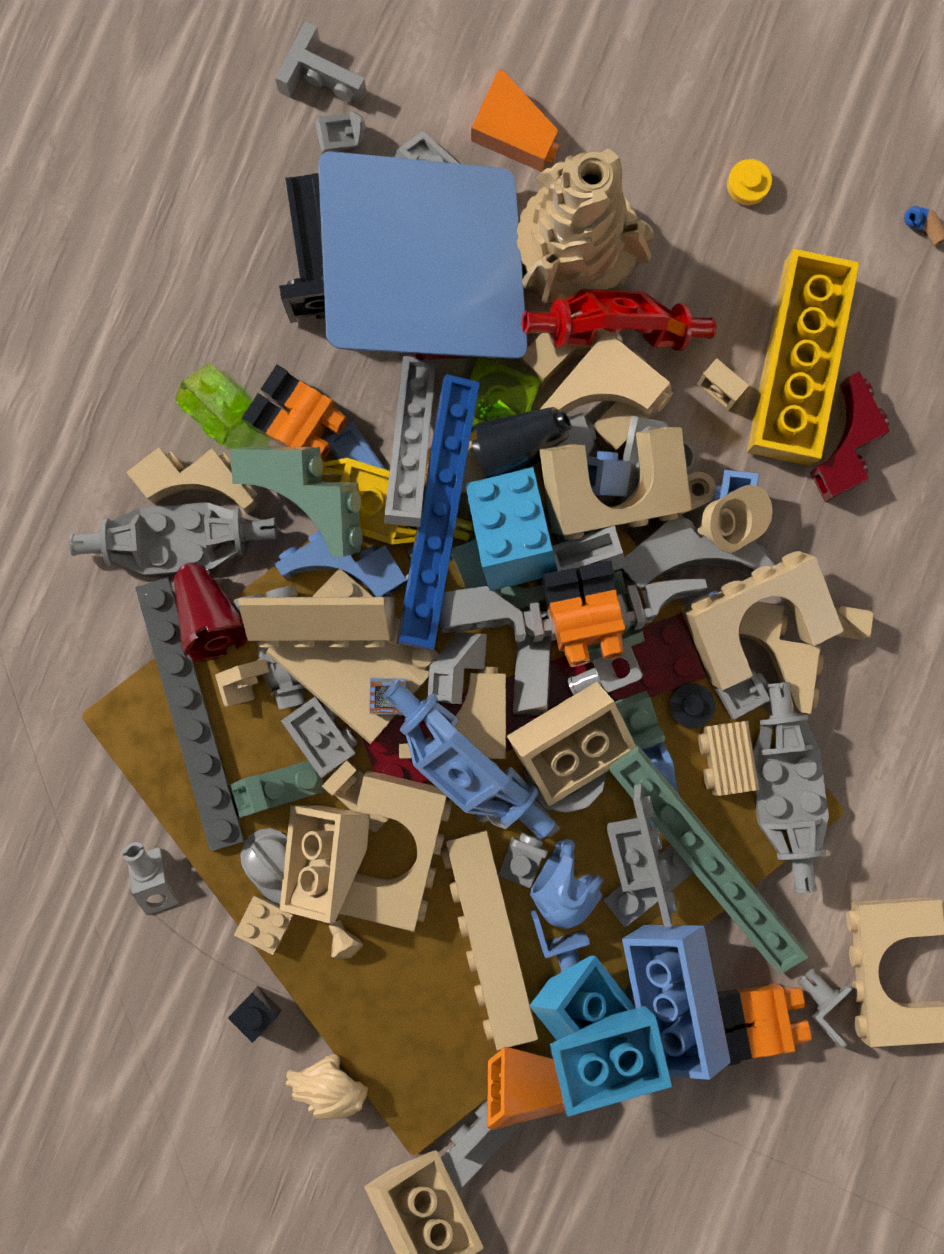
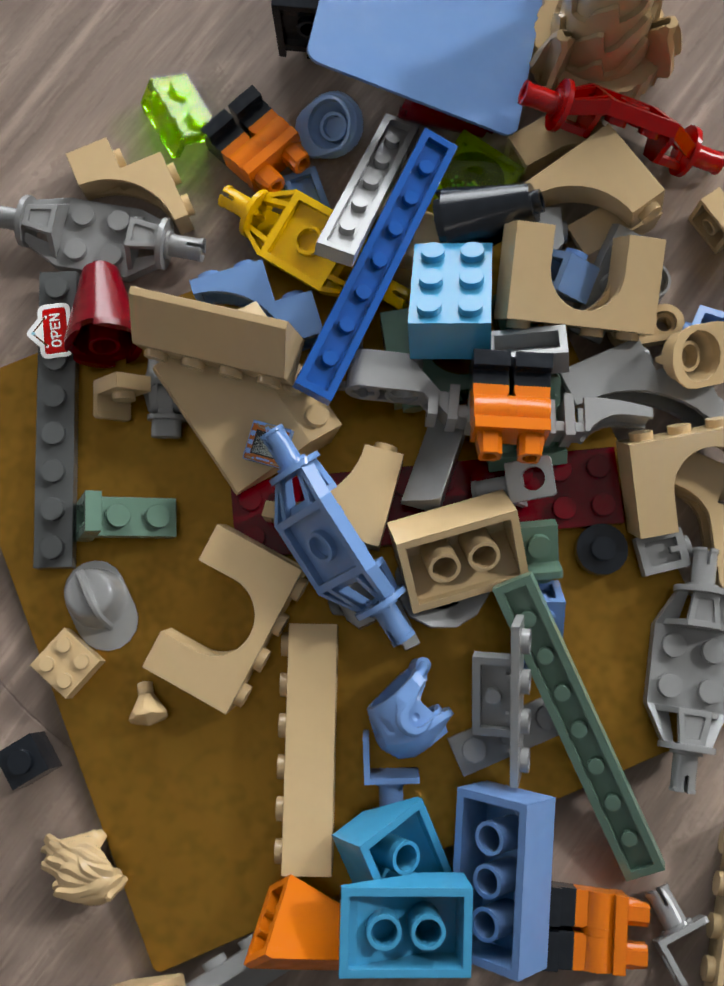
camera: 25 degrees right, 5 degrees down
(164, 638) = (50, 330): none -> sticker
(297, 475) = (239, 192): sand green arch -> none
(320, 736) = (186, 474): light grey bracket -> none
(321, 859) = (147, 606): tan slope -> none
(346, 787) = (195, 531): tan bracket -> none
(356, 382) = (330, 125): none -> light blue hat
(447, 670) = (339, 436): light grey slope -> none
(522, 859) = (369, 668): light grey bracket -> none
(728, 758) = (629, 617): tan brick -> none

